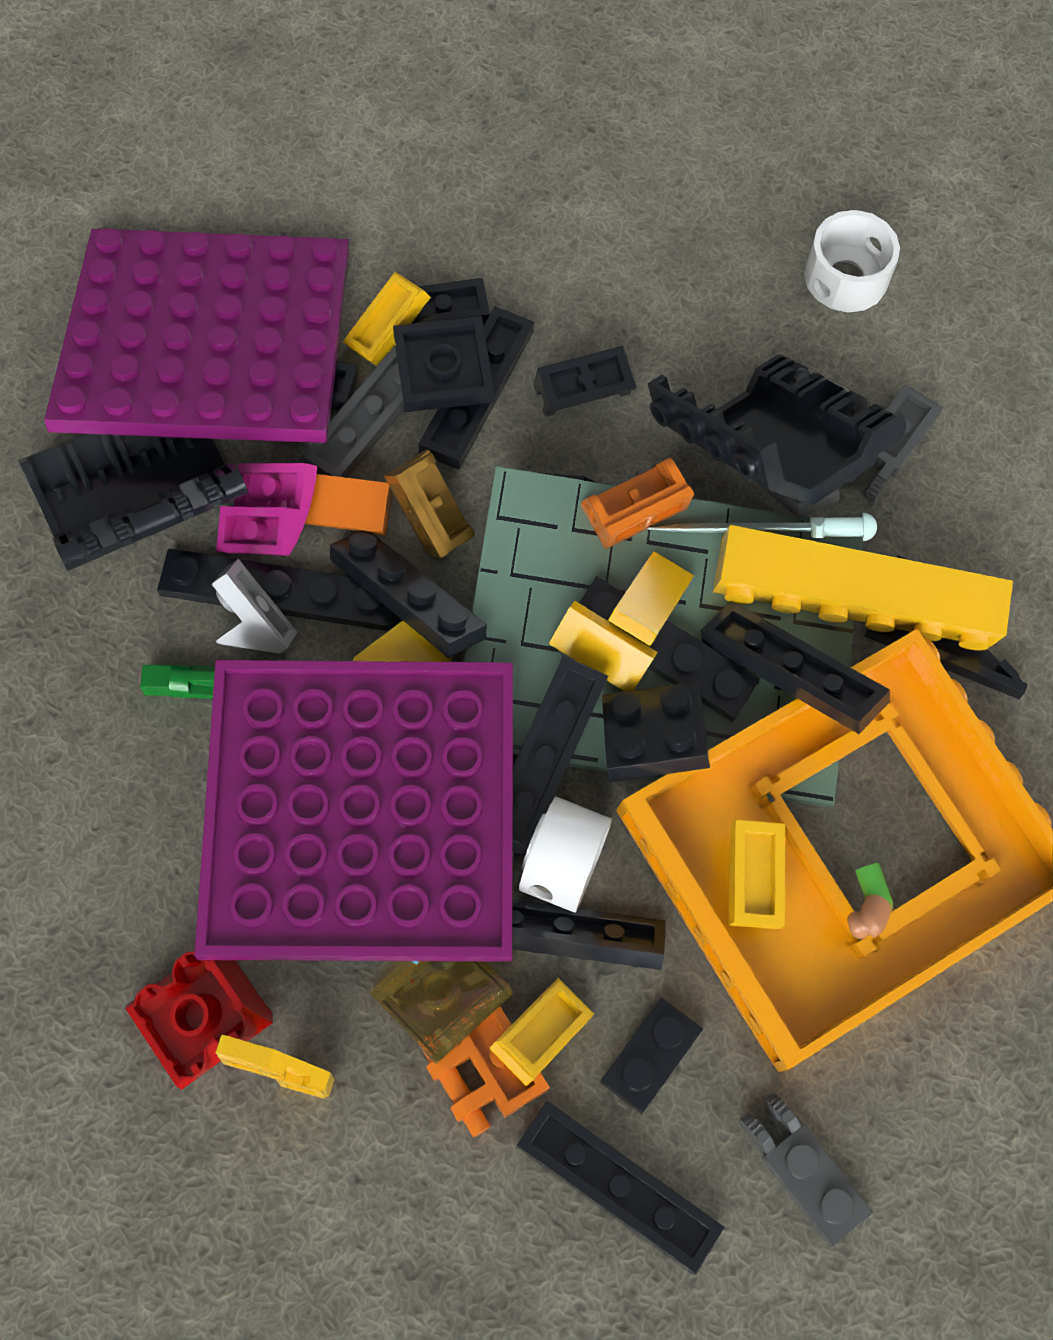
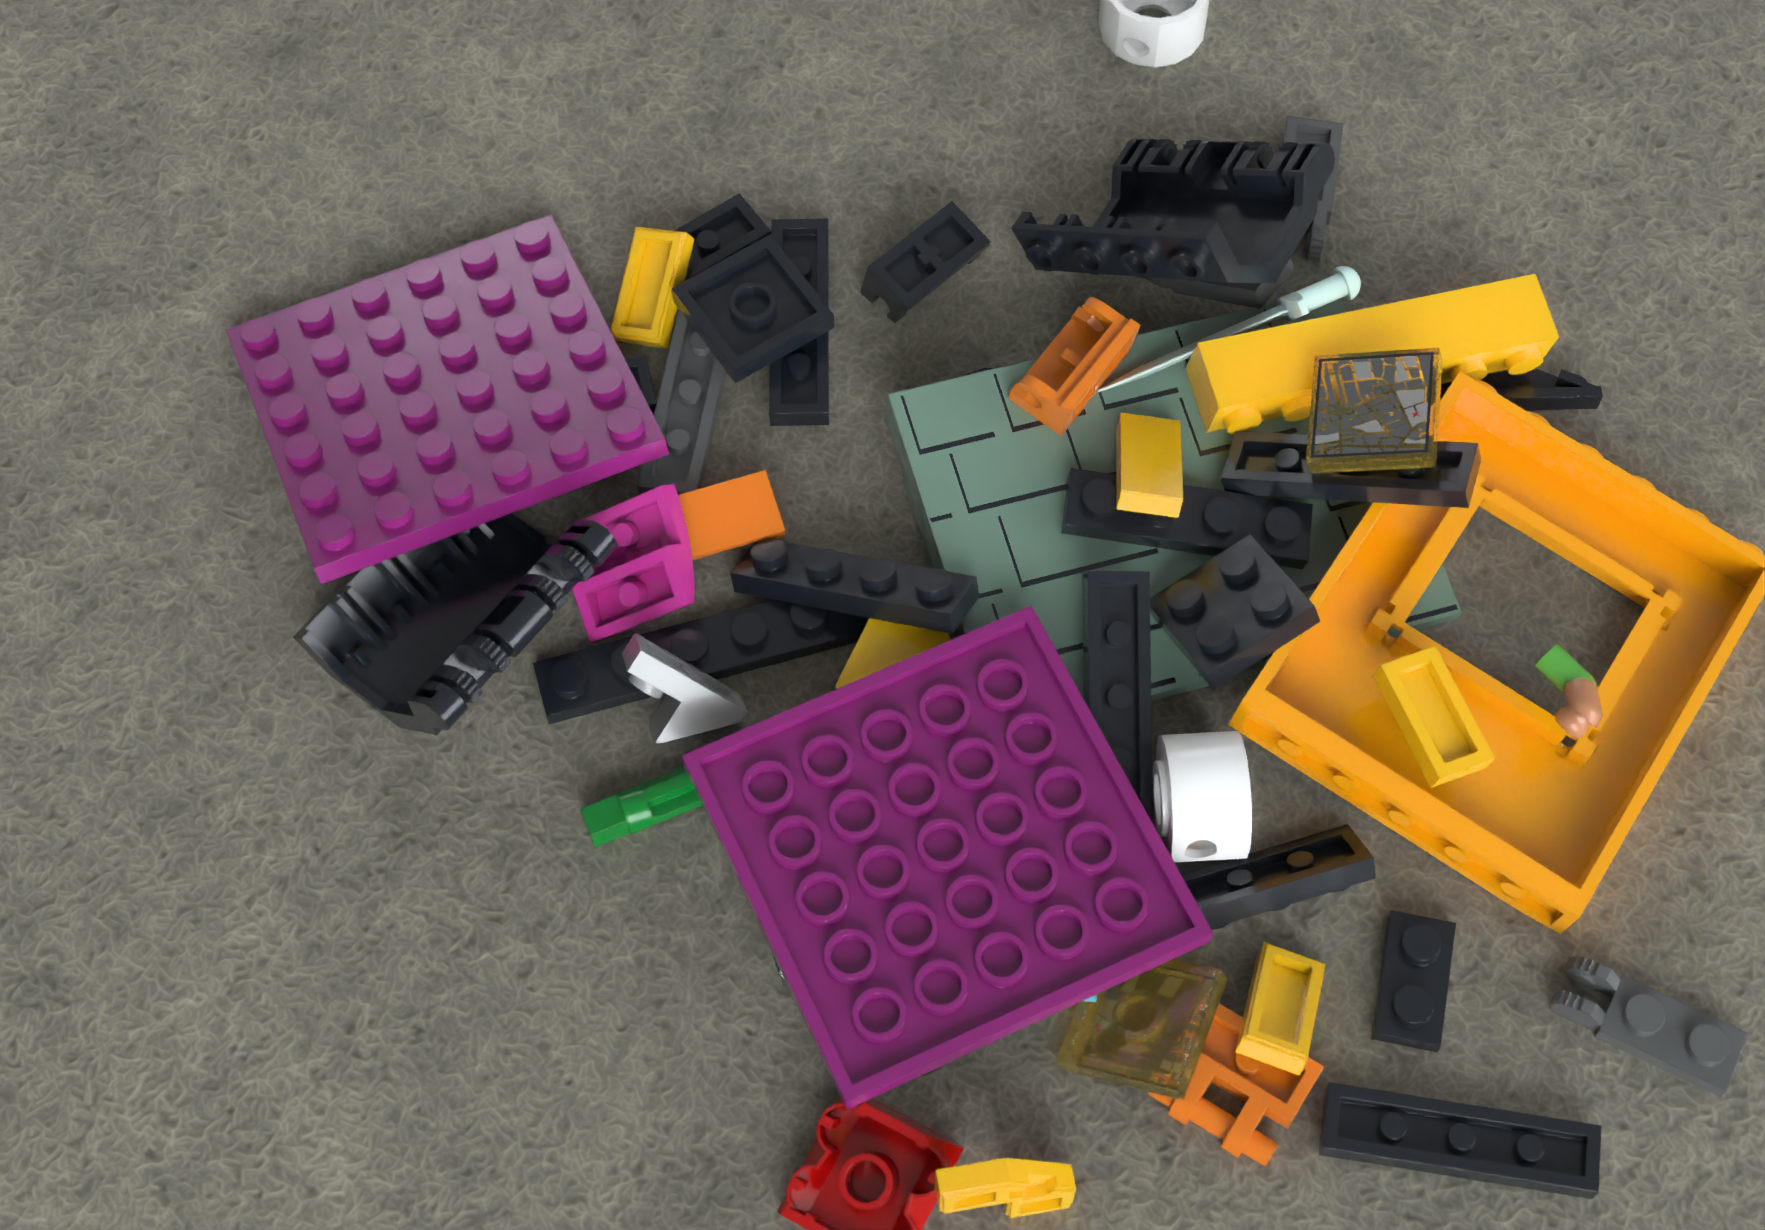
camera: 20 degrees left, 5 degrees down
(429, 505) = (823, 478): pearl gold hinge -> none
(602, 647) = (1120, 543): yellow tile -> none
(829, 631) = (1374, 411): none -> tile

